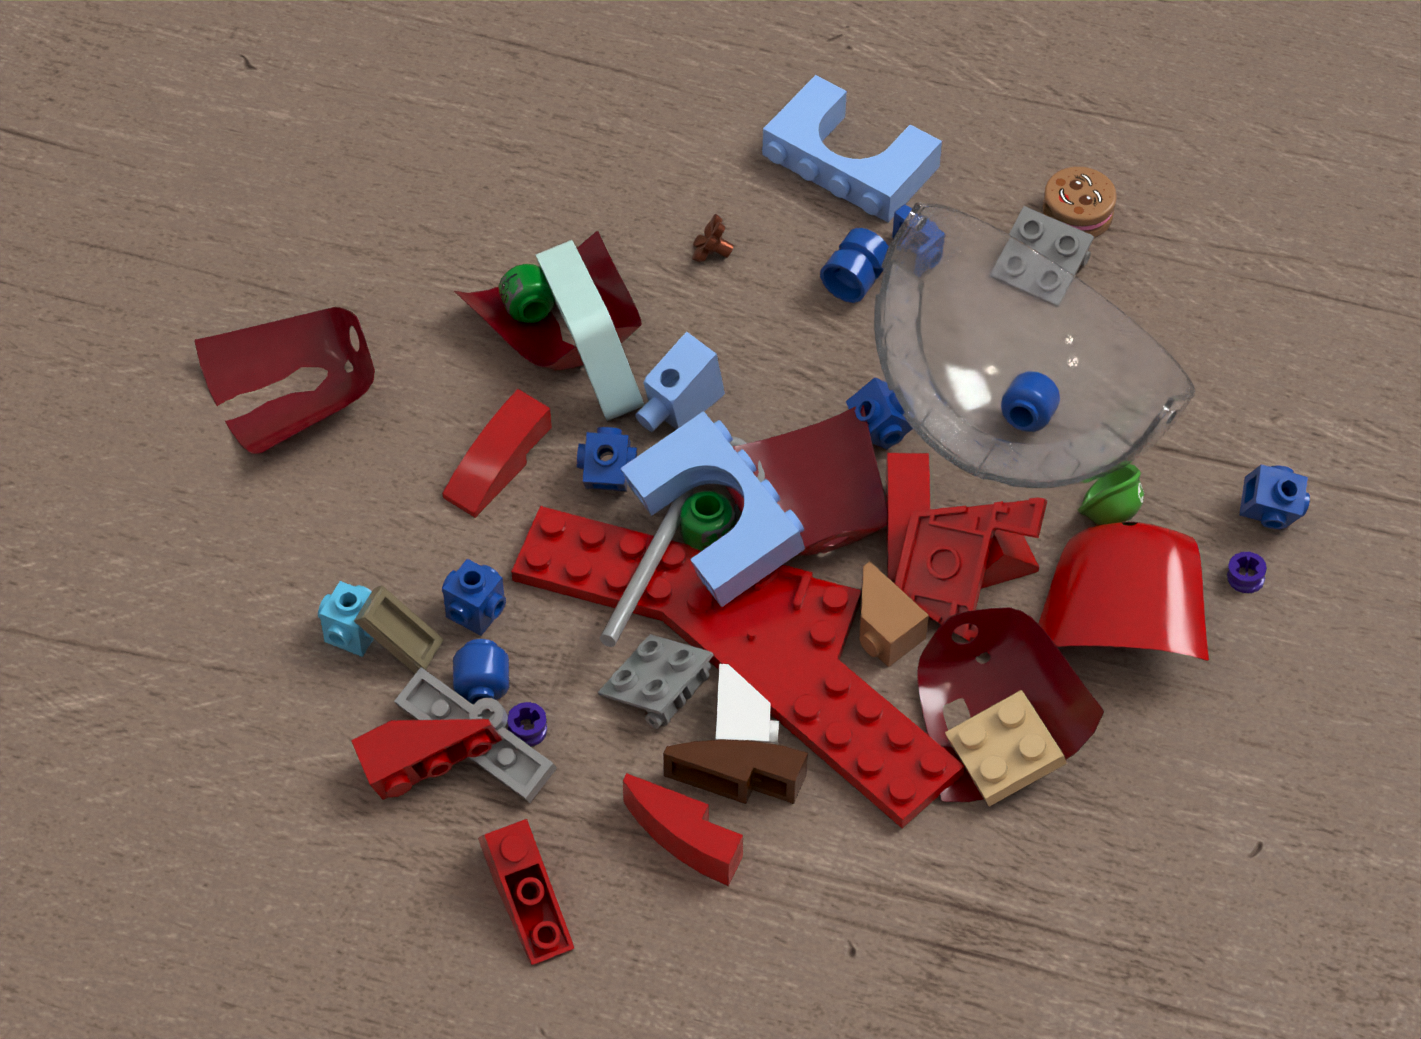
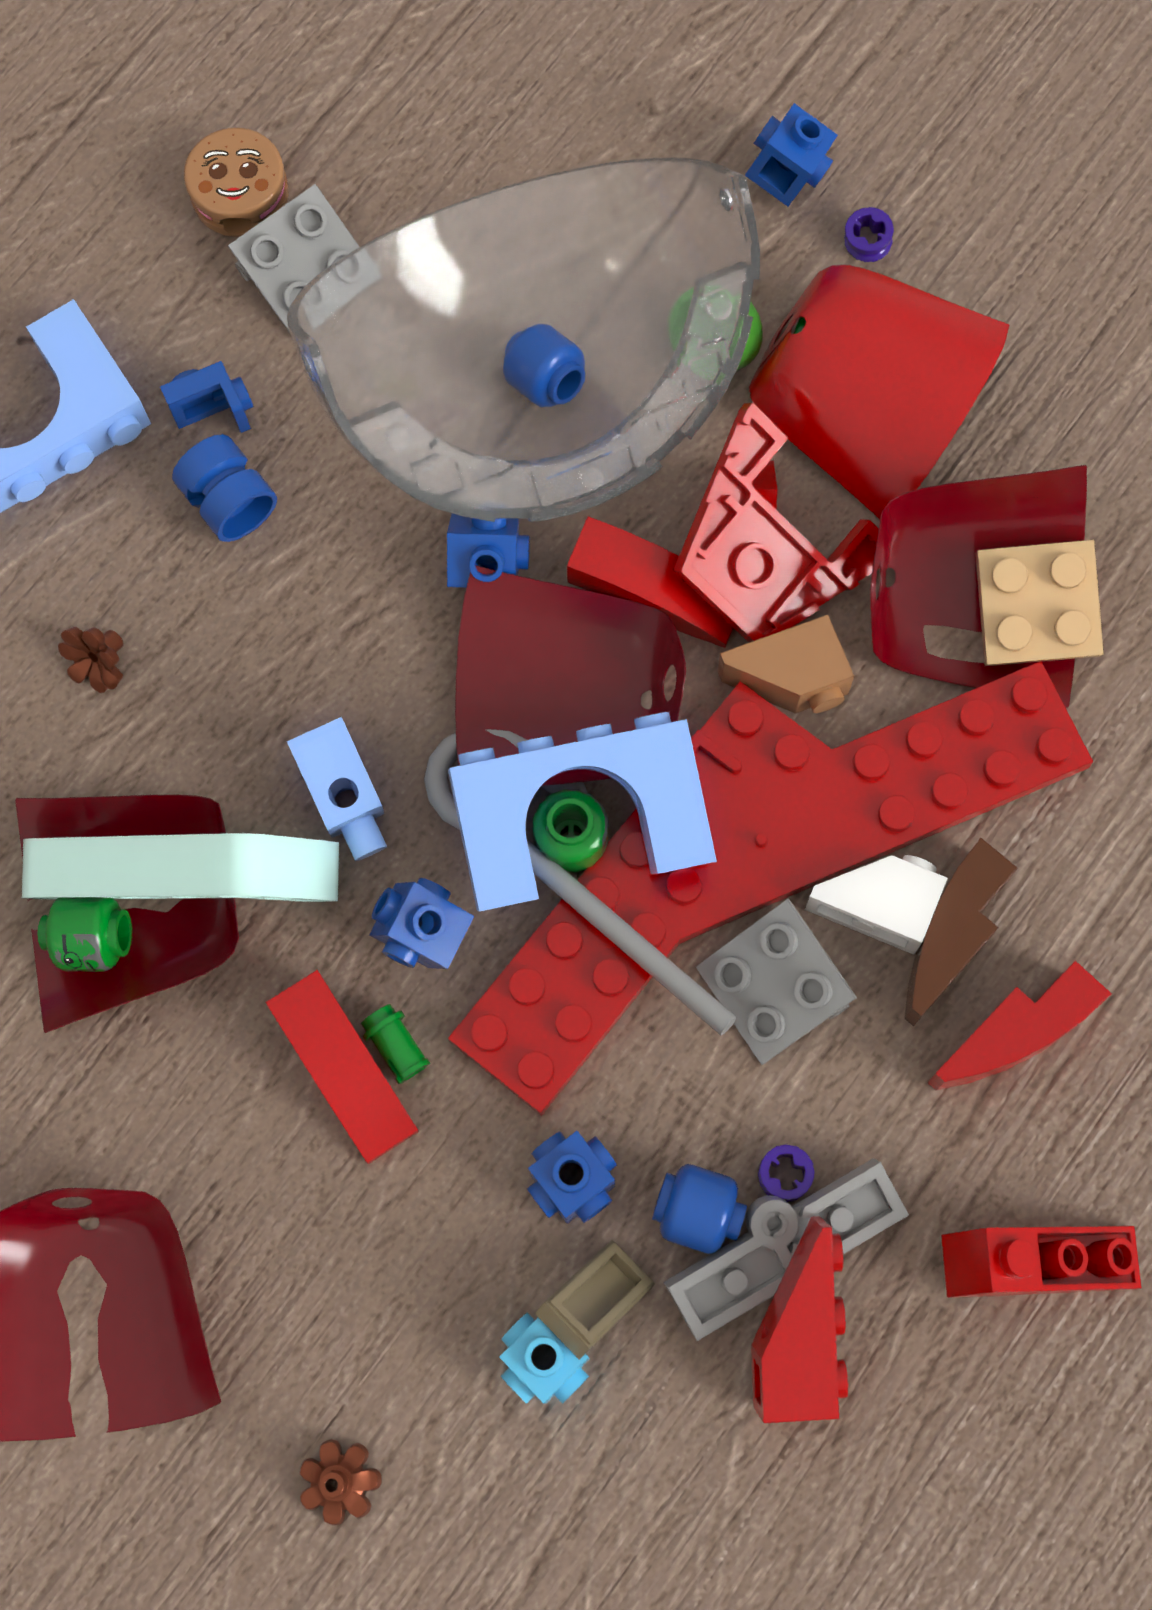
camera: 65 degrees left, 20 degrees up
(235, 542) = (350, 1477): none -> copper plant
(524, 480) = (394, 1043): none -> green pin

